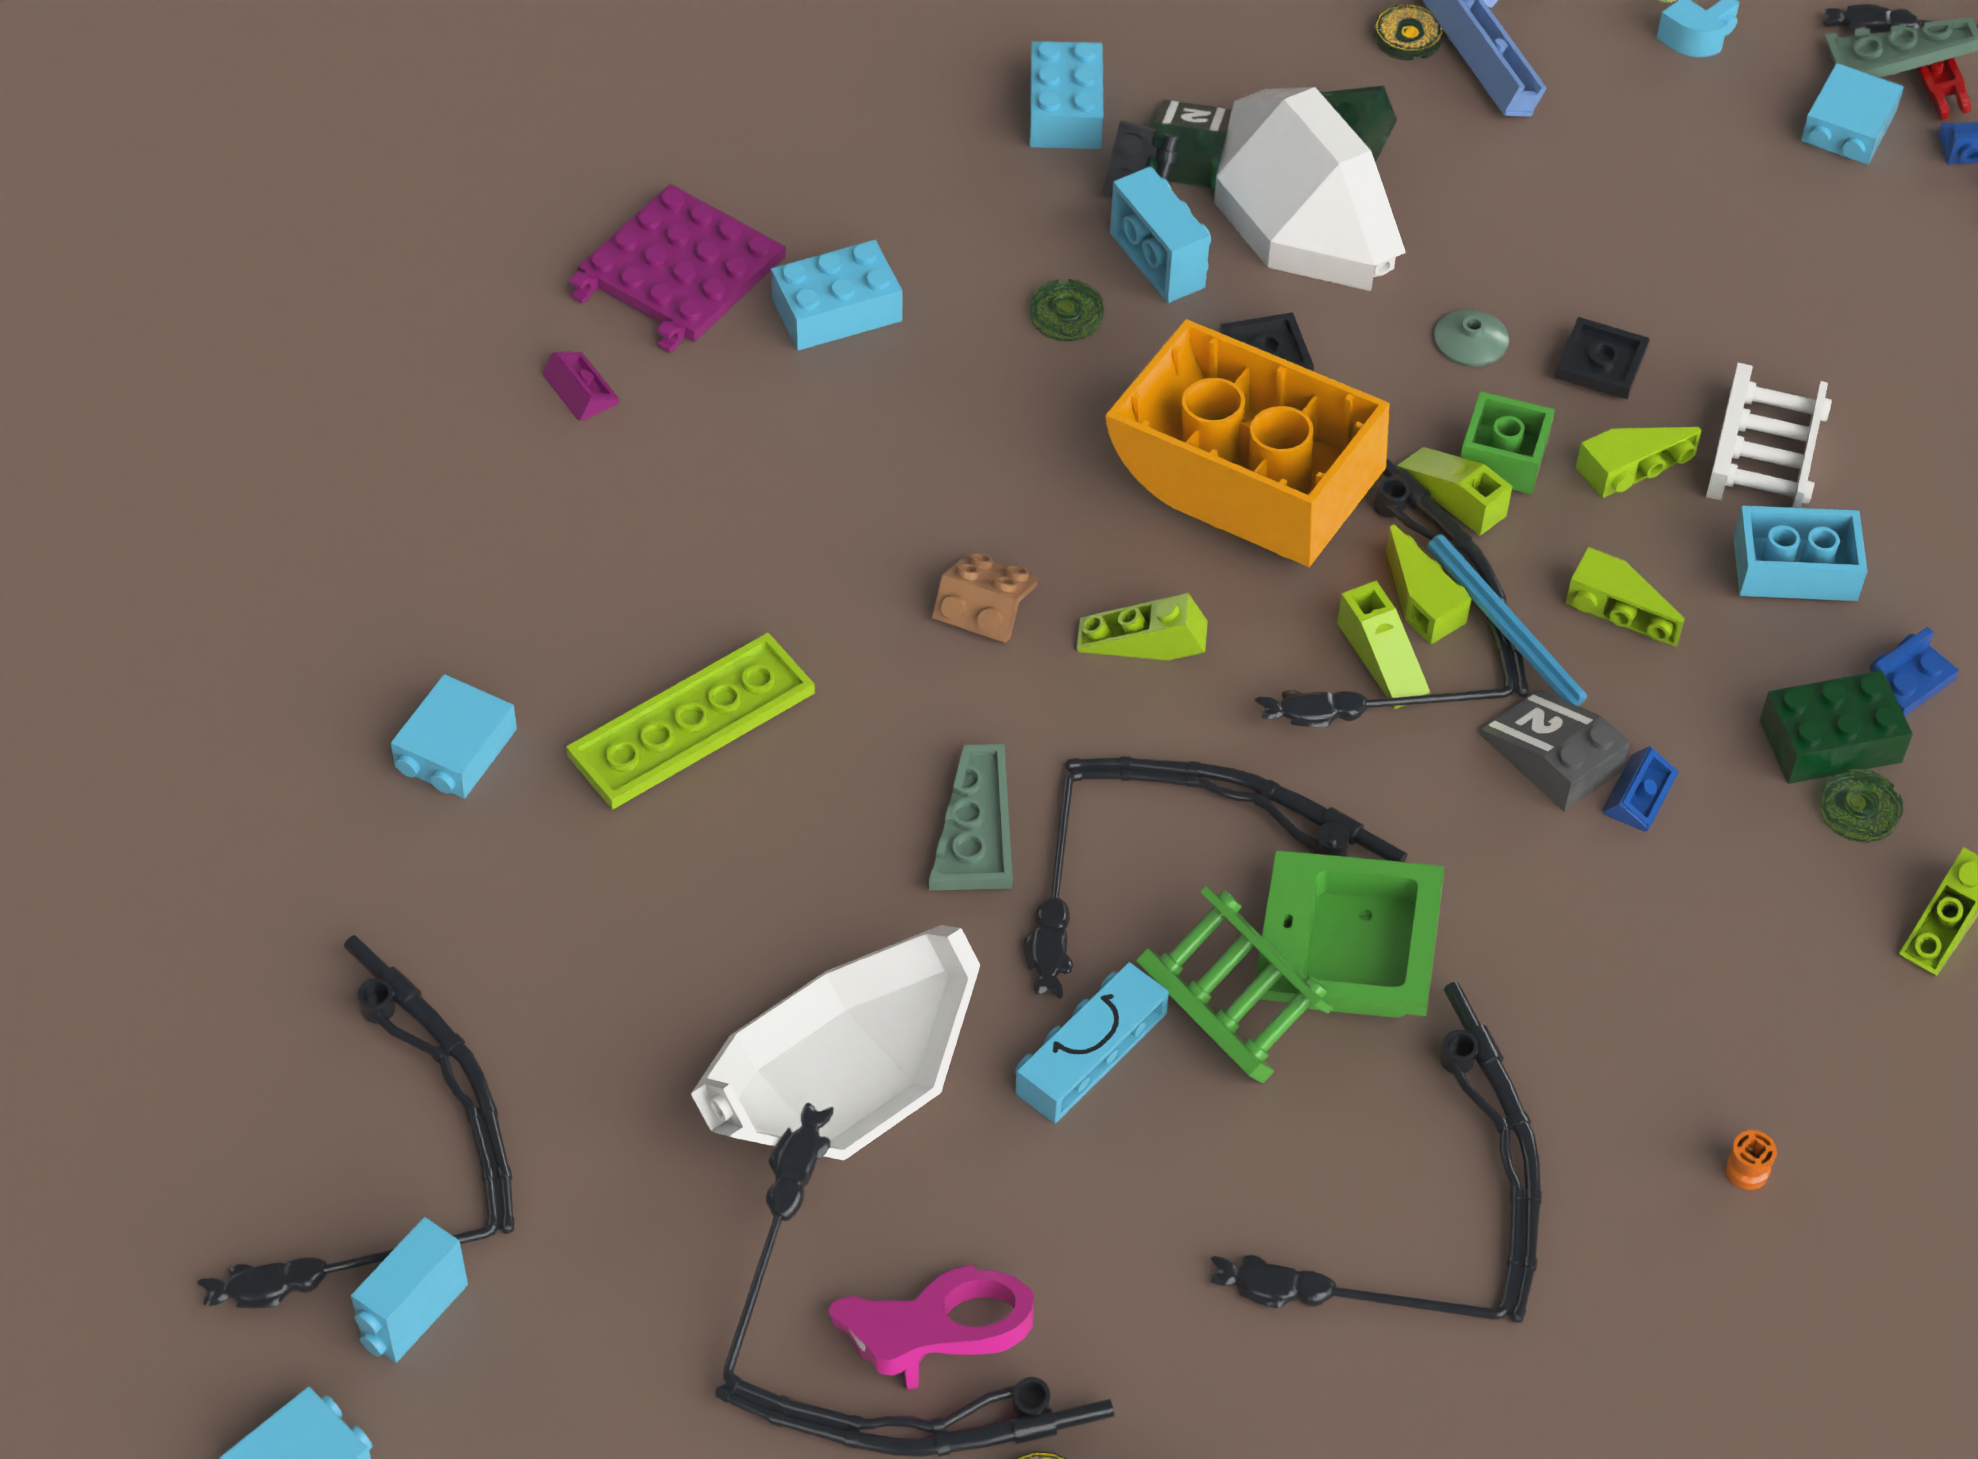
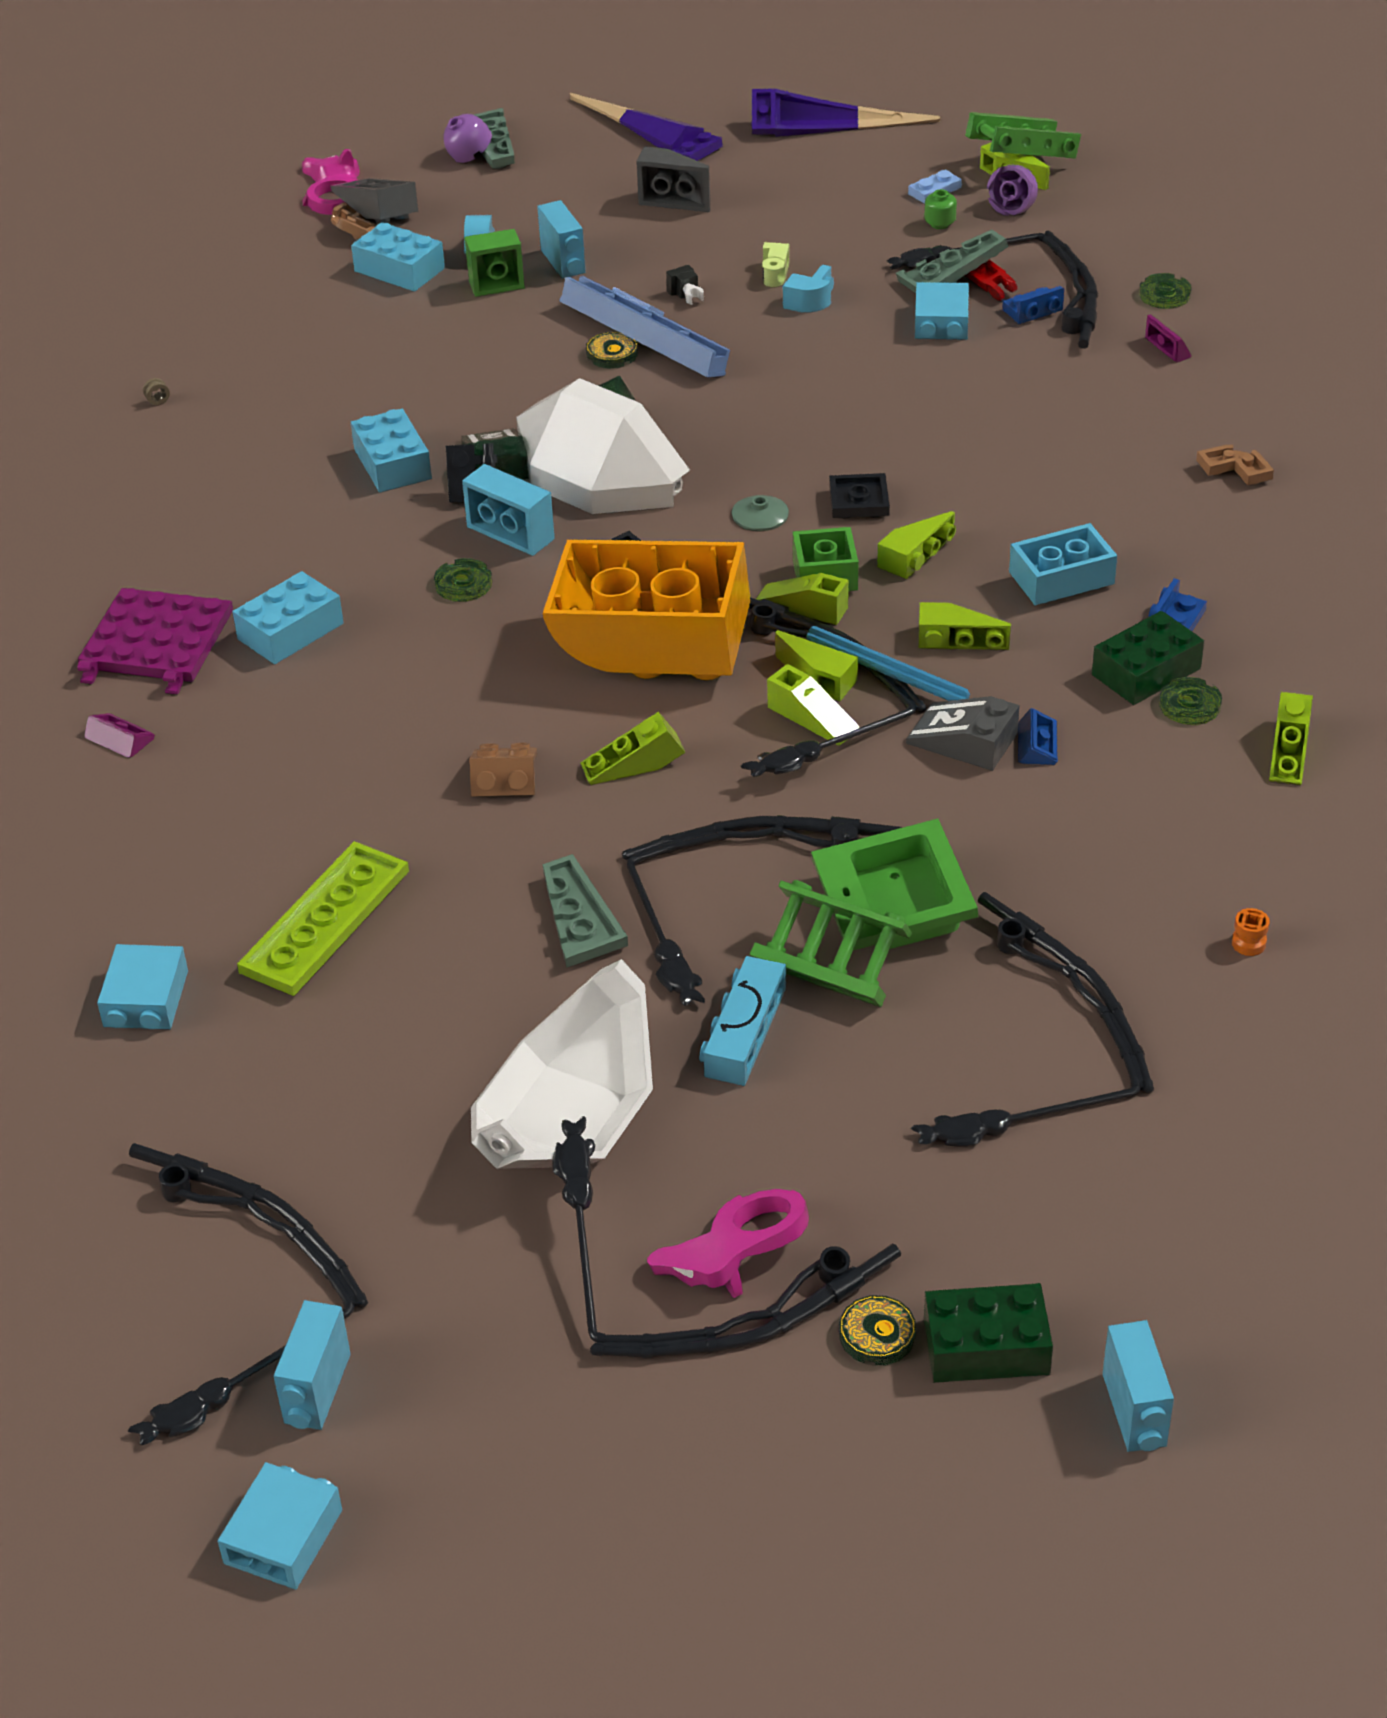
camera: 20 degrees left, 10 degrees down
(1733, 446) = (977, 519): white fence -> none

